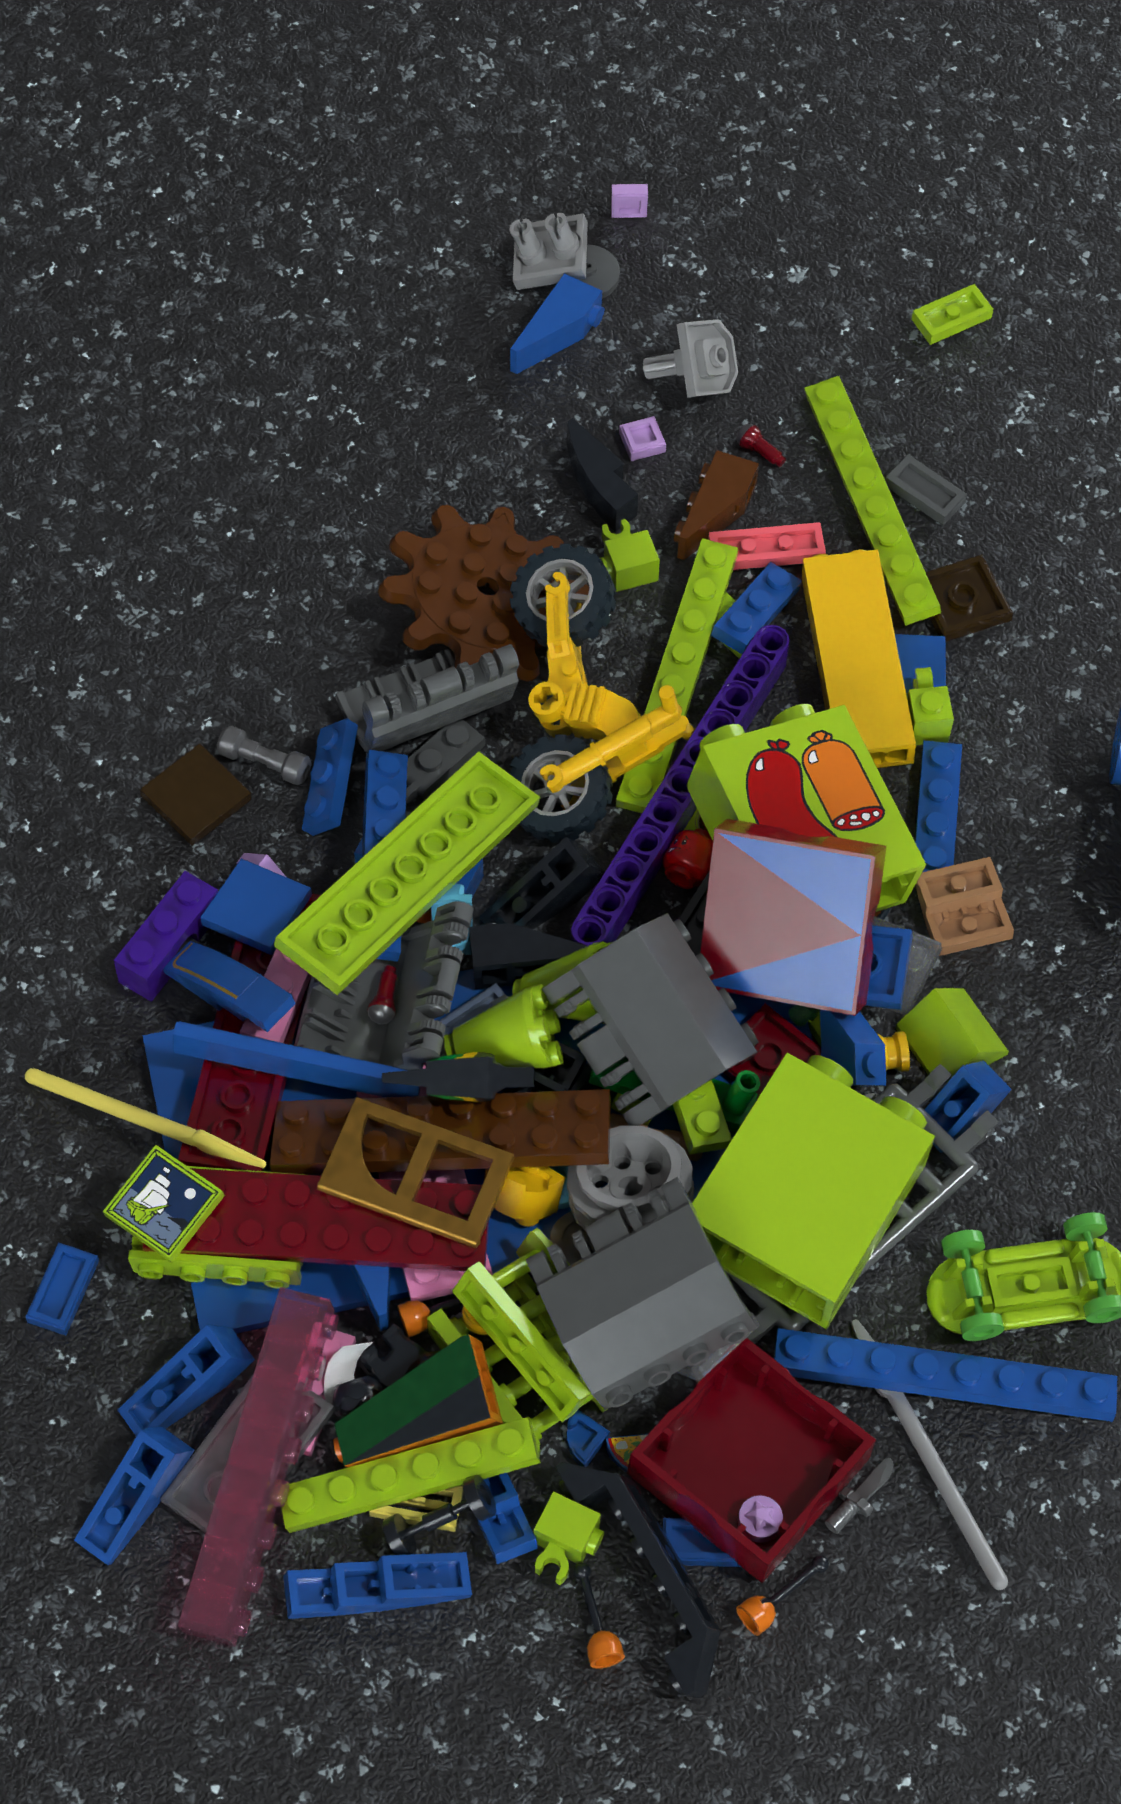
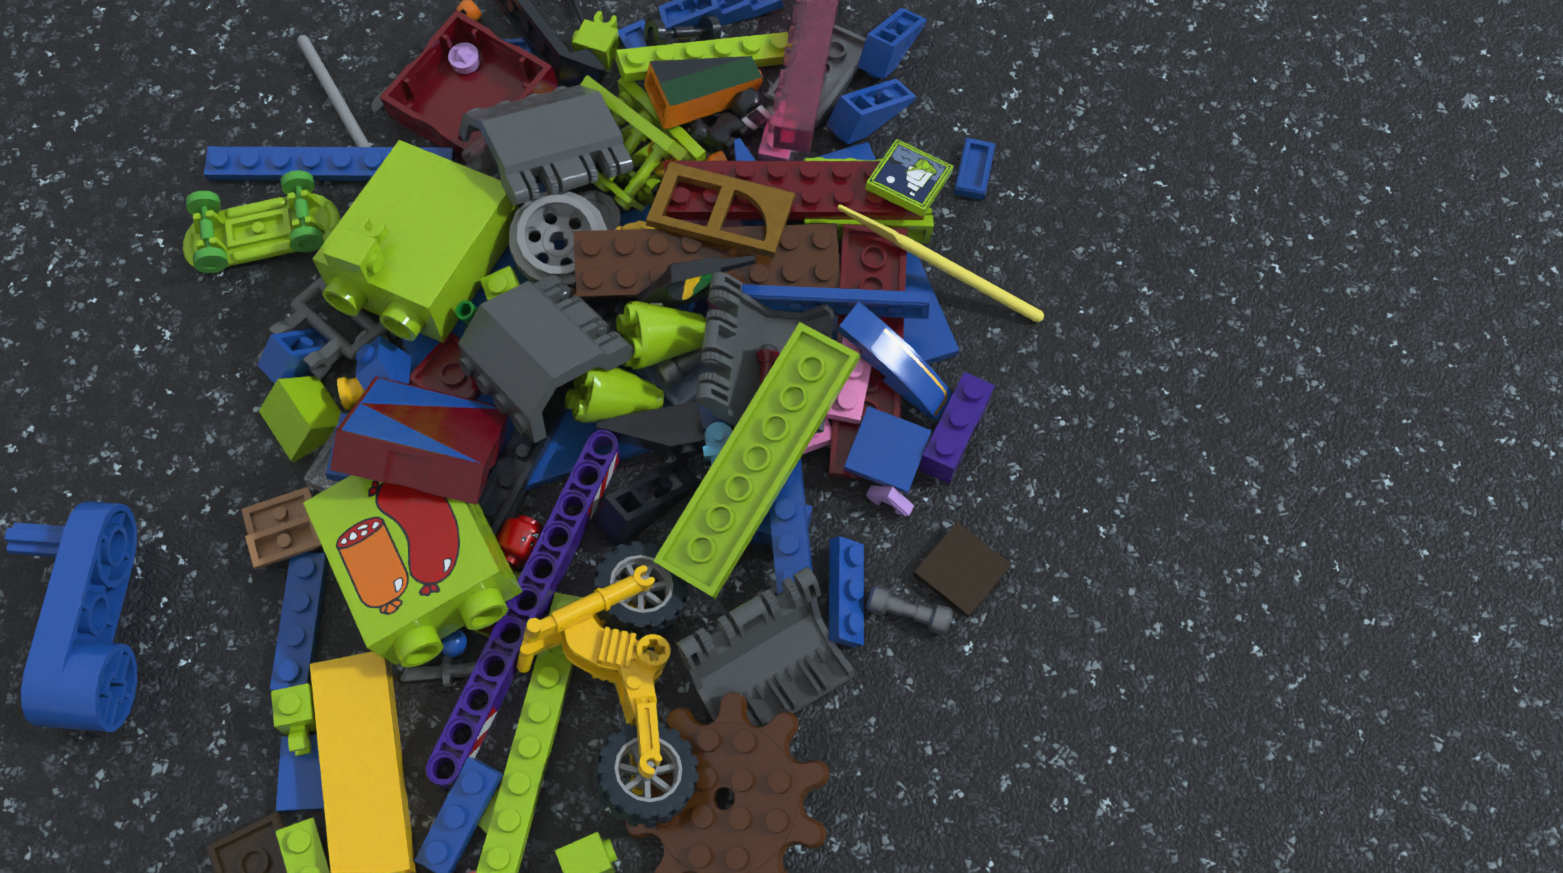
camera: 175 degrees right, 5 degrees up
(873, 1116) = (357, 253): none -> lime brick

